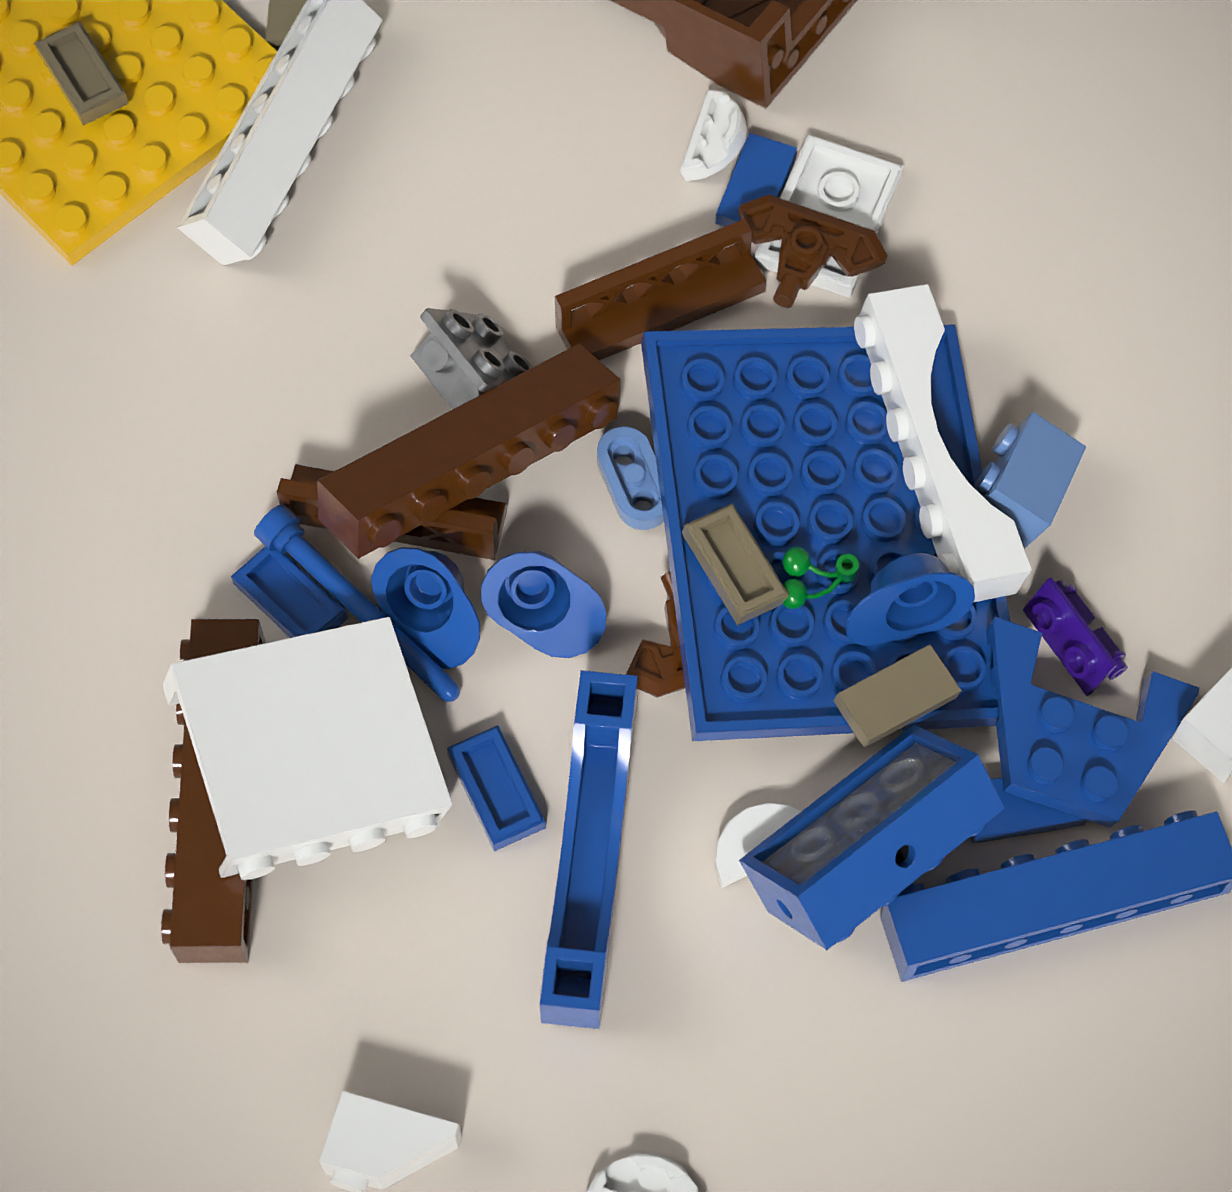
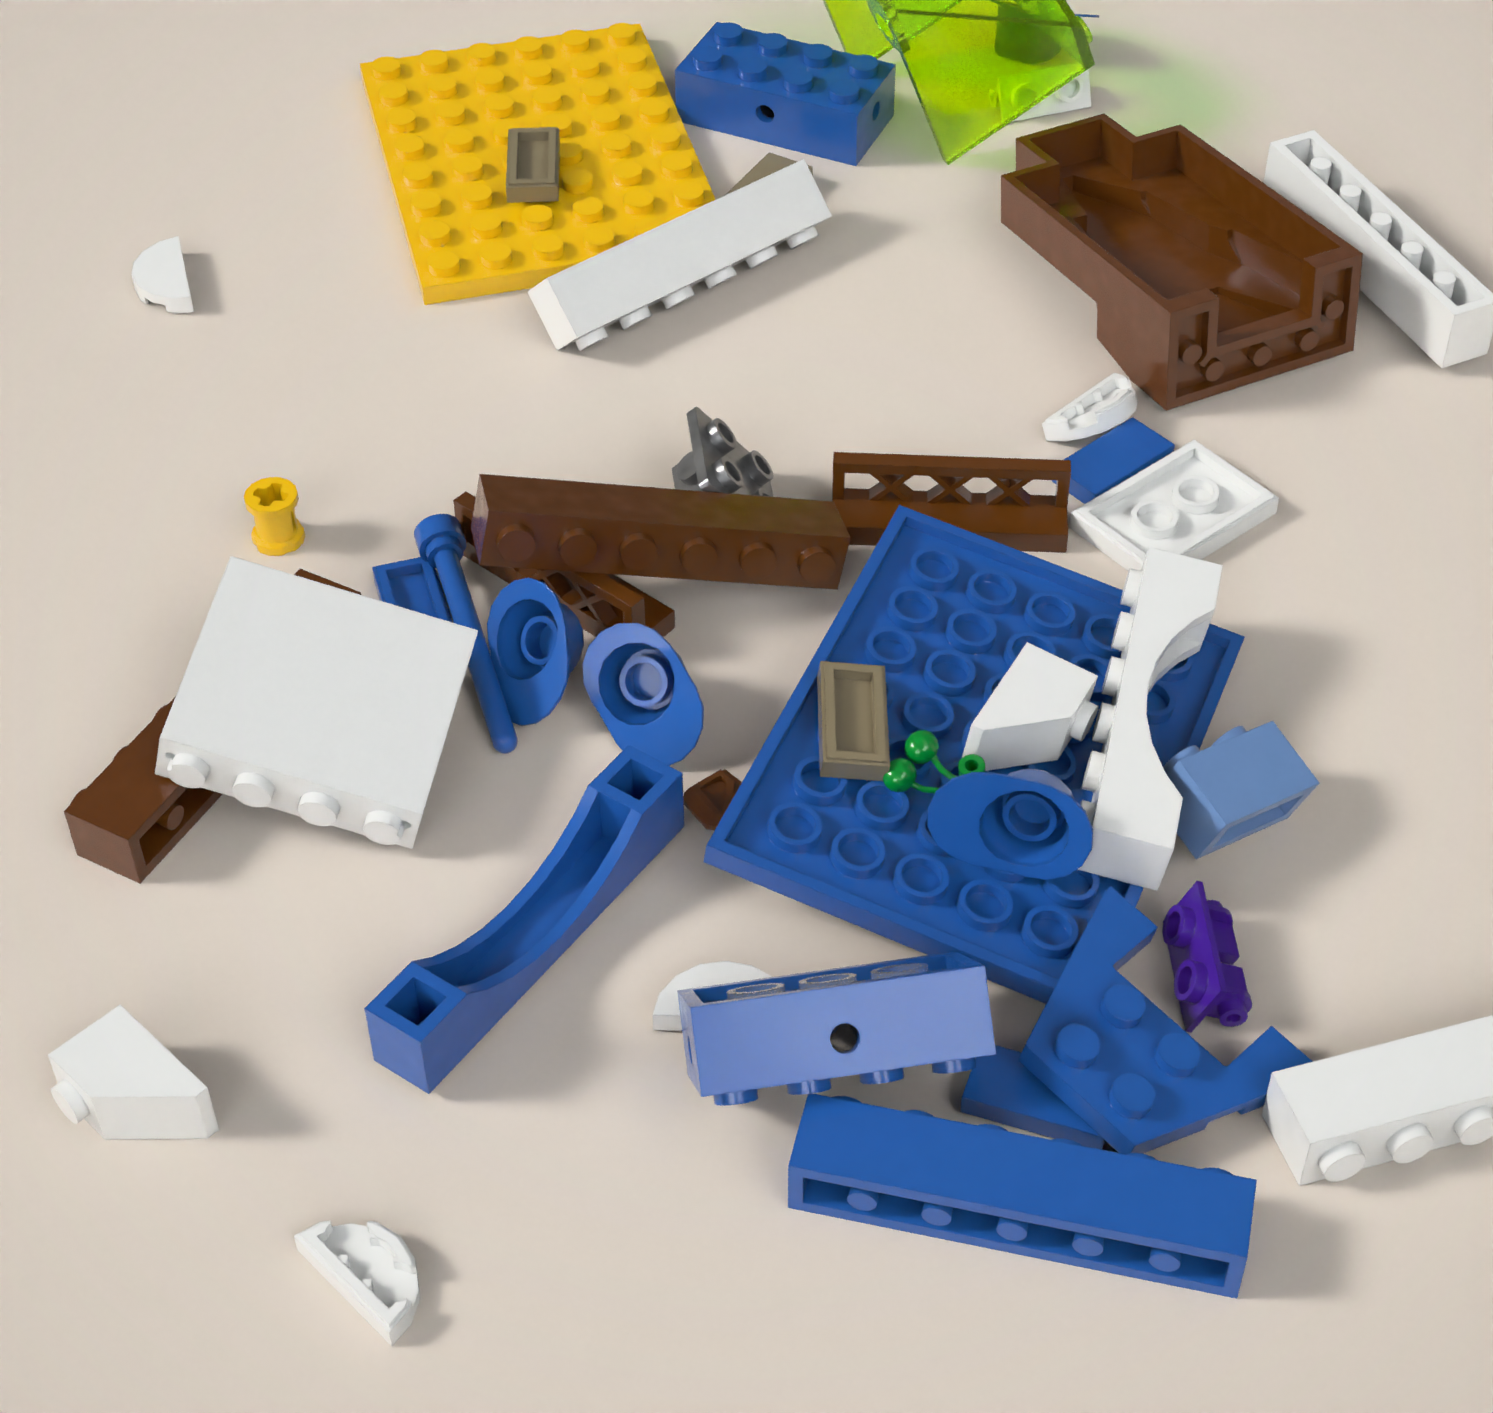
camera: 30 degrees right, 20 degrees down
(112, 550) = (276, 525): none -> yellow bush
(496, 788) = (488, 840): blue tile -> none
(633, 481) = (806, 626): medium blue plate -> none
(809, 243) = (1125, 510): reddish brown piece -> none
(860, 489) = (1033, 711): none -> white slope
(897, 696) = (951, 910): dark tan tile -> none

